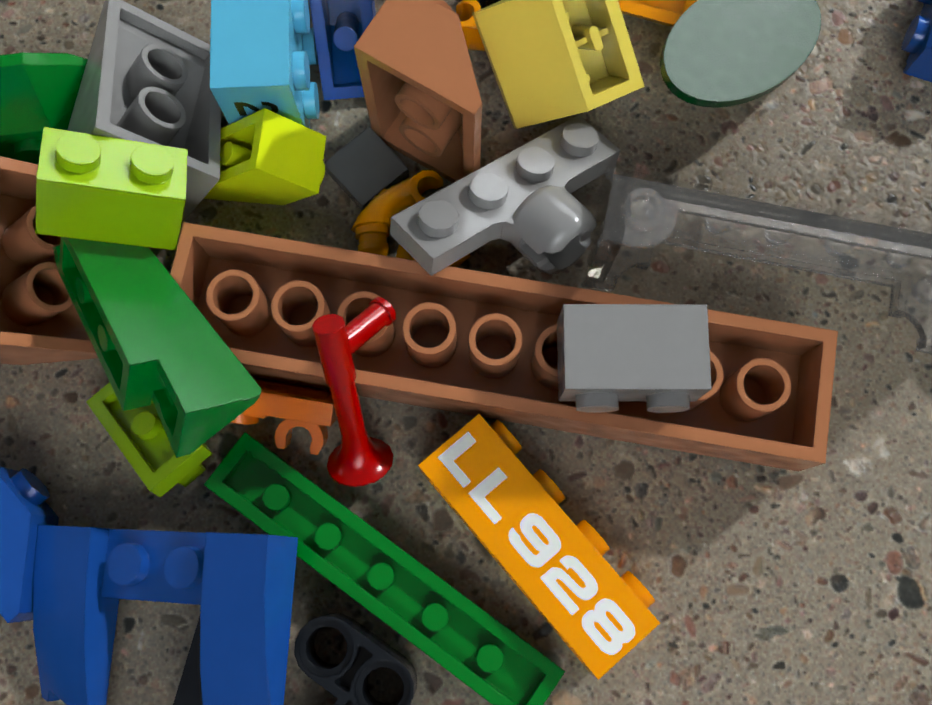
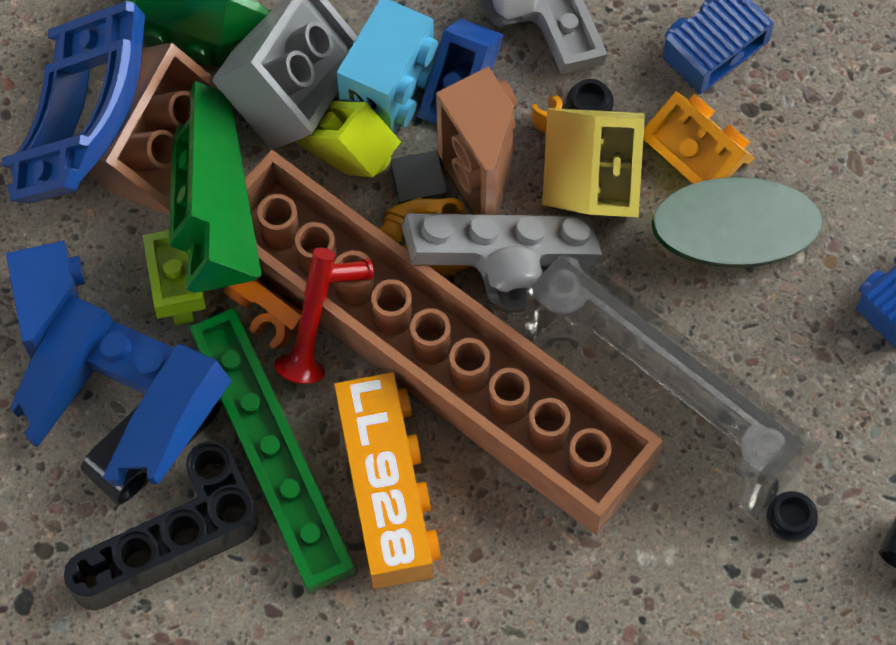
camera: 30 degrees right, 10 degrees down
(110, 189) = (238, 106): lime brick -> none
(633, 355) = (506, 376): light grey brick -> none

